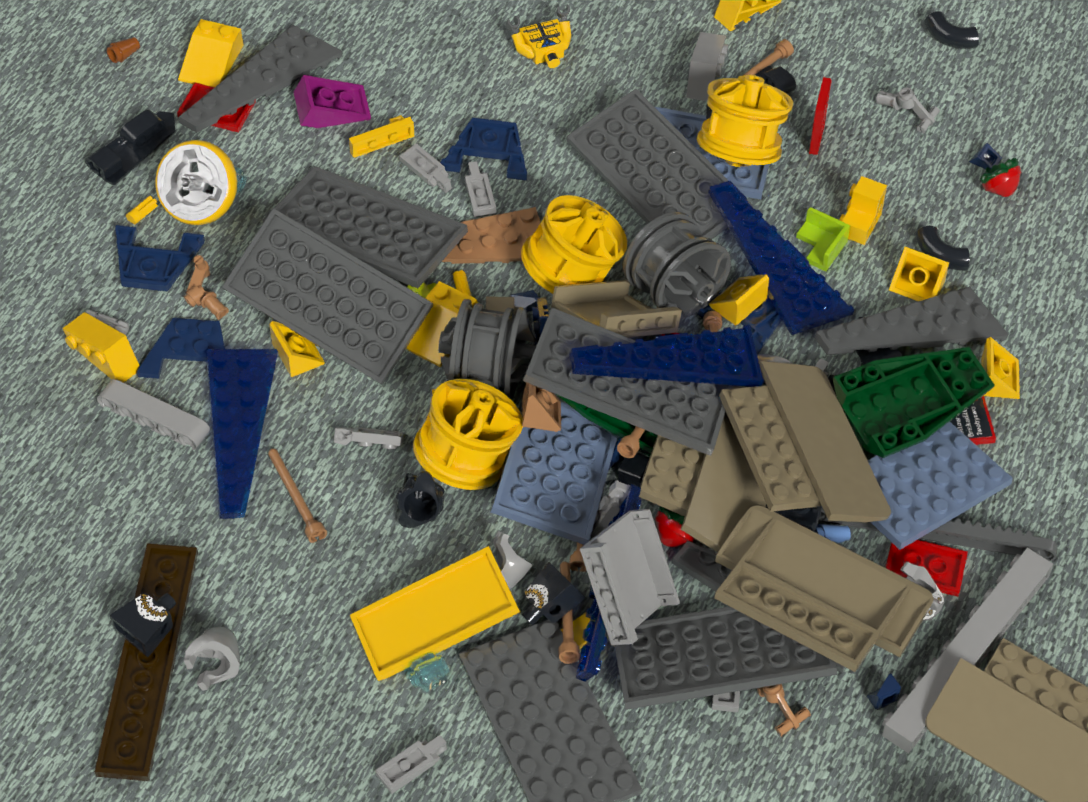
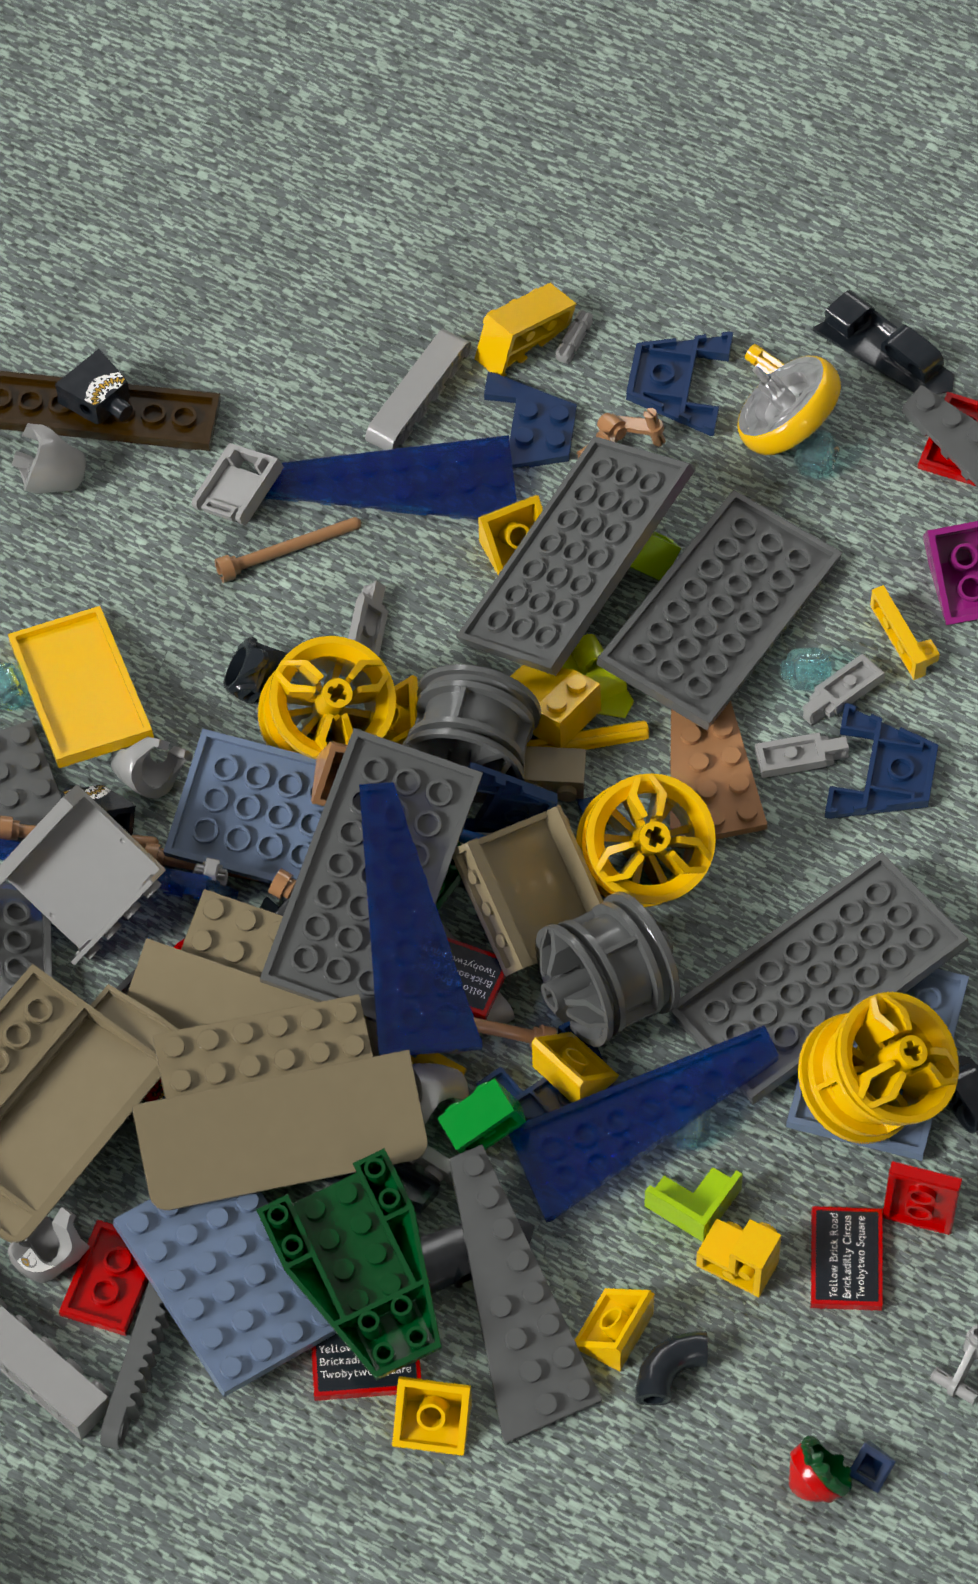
camera: 95 degrees right, 5 degrees up
(244, 527) = (234, 491): none -> light grey container
(411, 185) = (806, 668): none -> clear light blue head
(793, 335) = (482, 1117): none -> green slope
(845, 168) = (846, 1258): none -> black tile

